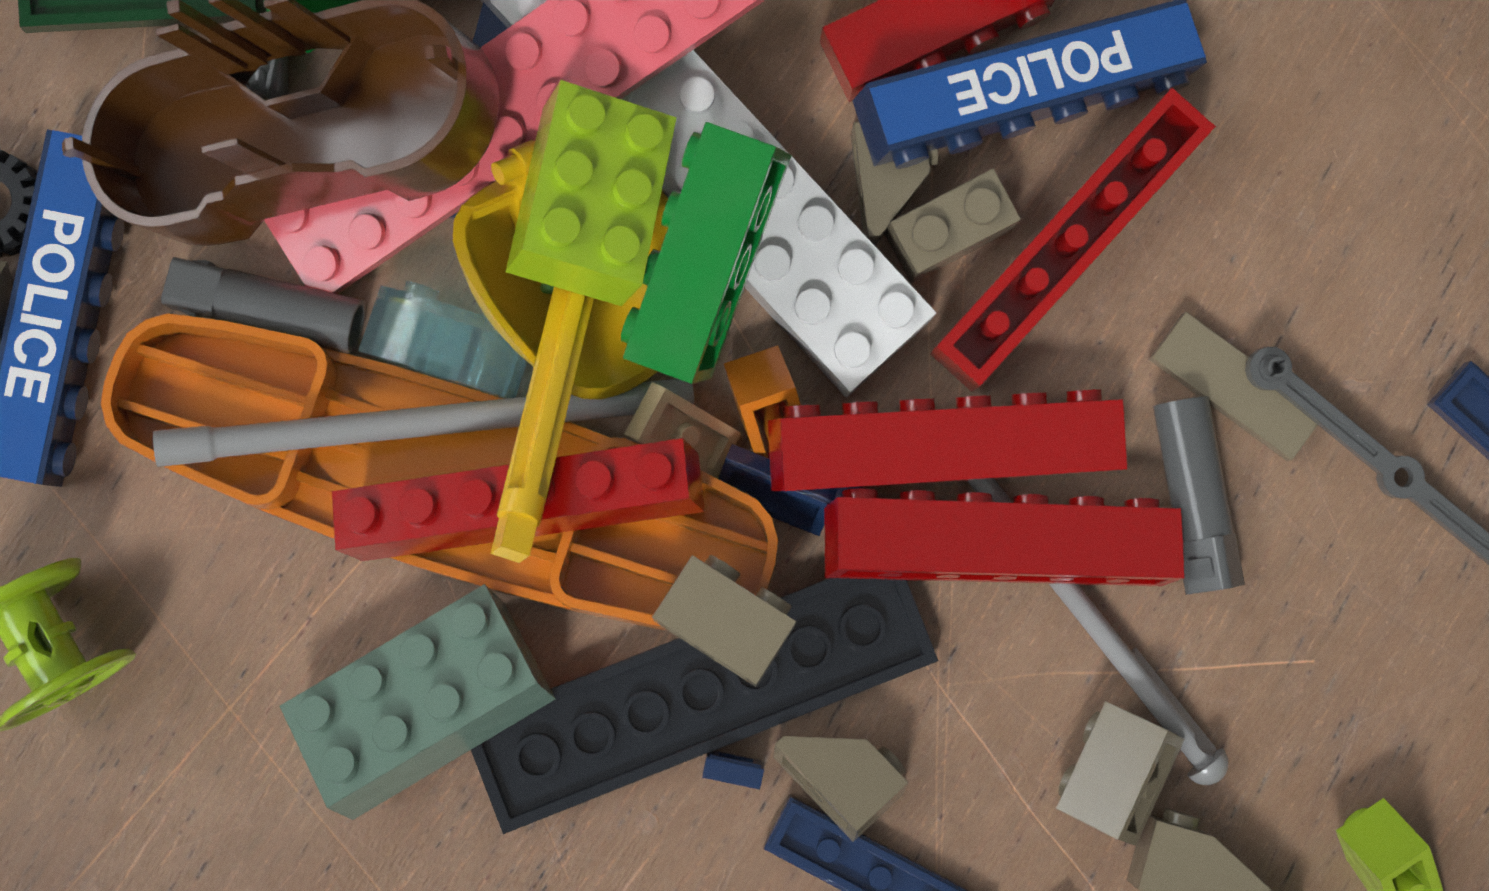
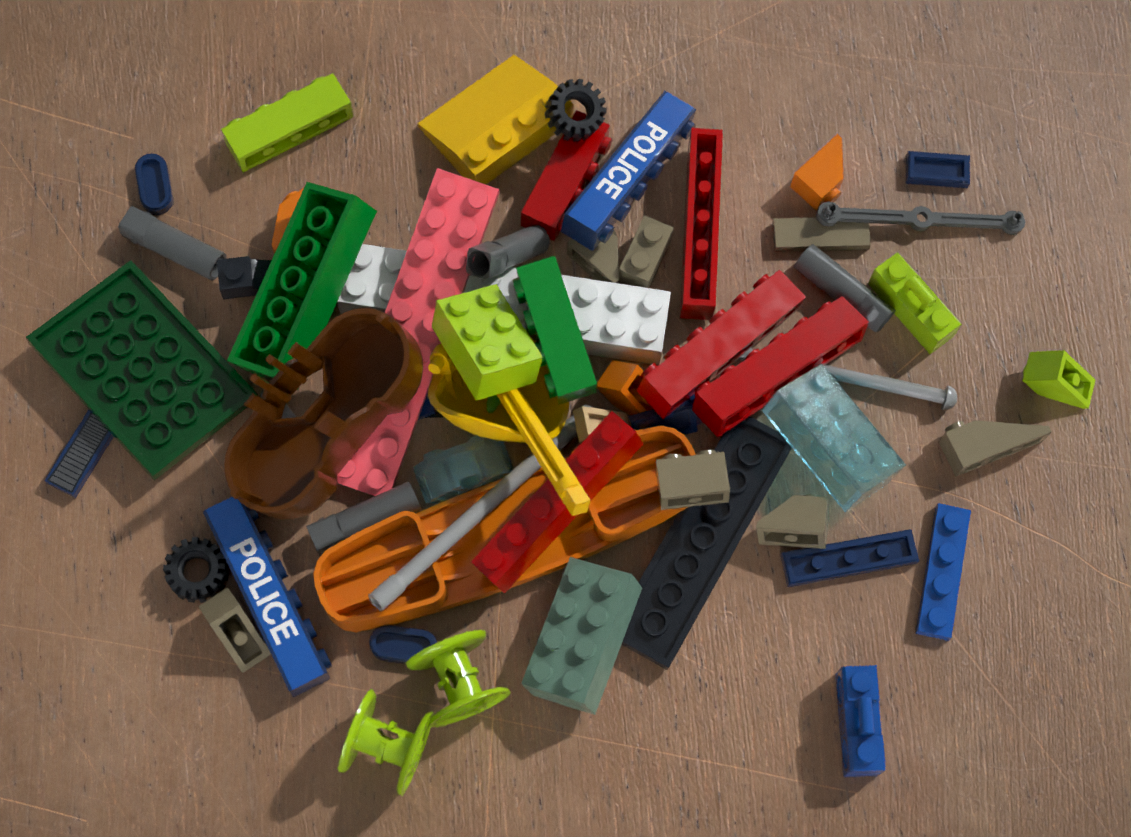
camera: 40 degrees left, 15 degrees down
(186, 519) = (399, 643): none -> dark blue tile
(195, 667) = (453, 664): none -> lime piece
(733, 769) = (746, 558): dark blue tile -> none
(746, 74) = (498, 255): none -> dark grey piece
(992, 703) = (833, 437): none -> clear light blue brick
(1118, 773) = (912, 426): dark tan brick -> none
(1279, 596) = (914, 303): none -> lime piece
(1310, 302) = (821, 175): none -> orange slope

